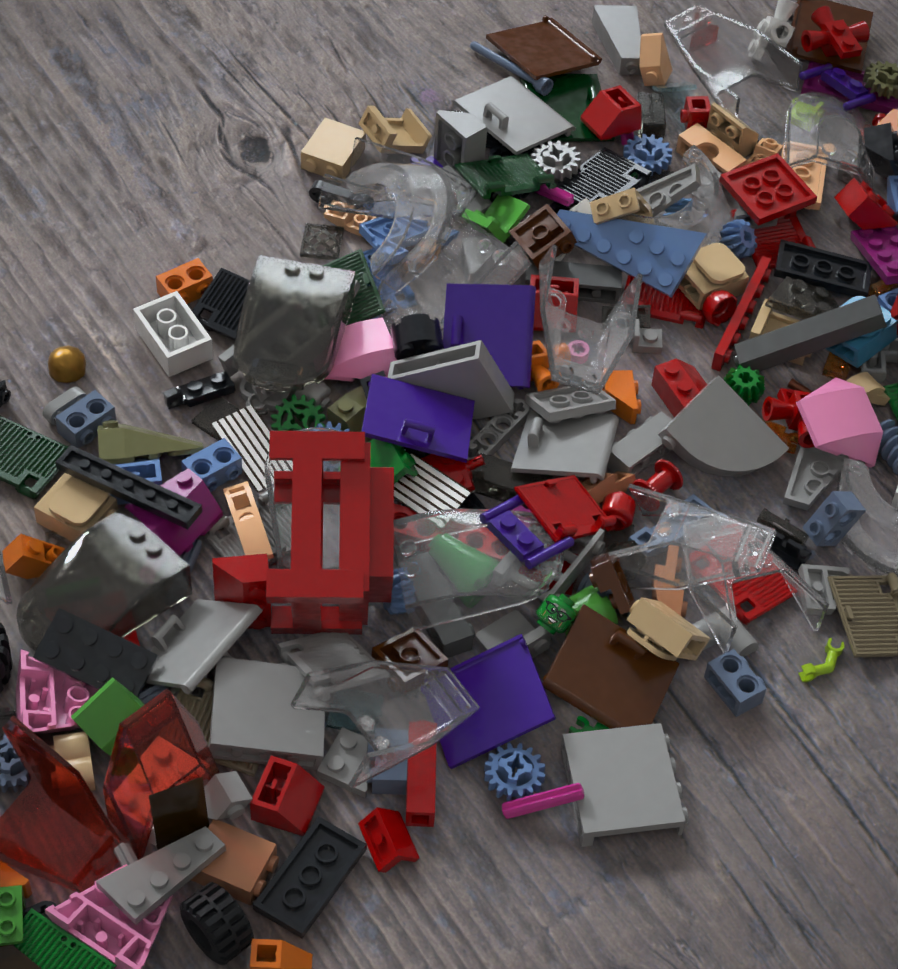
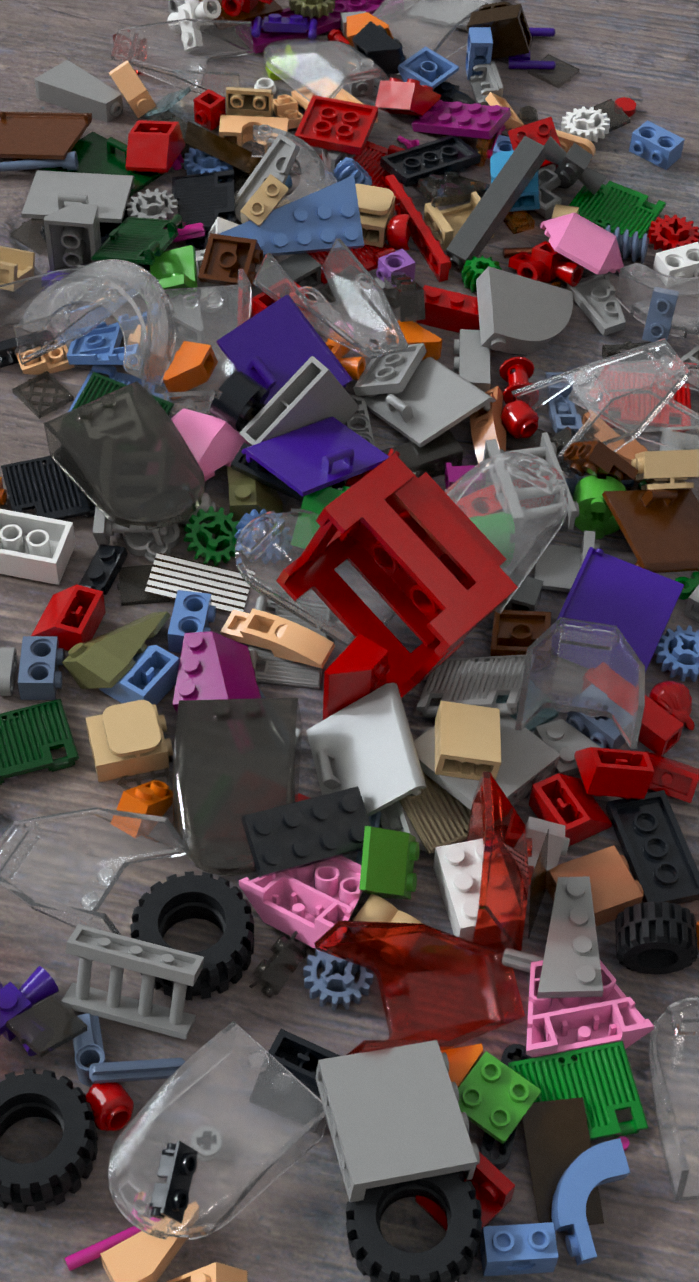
camera: 45 degrees left, 0 degrees up
(129, 487) = (167, 680): black plate -> none
(143, 405) = (72, 616): none -> red slope
(257, 686) = (467, 740): none -> tan brick
(335, 800) = (615, 772): none -> red slope
(422, 293) = (190, 367): none -> orange slope
(455, 795) = (675, 699): none -> red piece
(518, 536) = (513, 476): dark purple plate -> none
(556, 613) = (594, 513): green head -> none
(566, 505) = (508, 436): red window -> none
(644, 354) = (405, 297): none -> clear smoke brick
(658, 143) = (220, 148): none -> dark brown sticker
(681, 333) = (395, 262): none -> medium lavender brick
(770, 125) = (265, 83): none -> white plate
(827, 245) = (408, 143): none -> dark pink hand

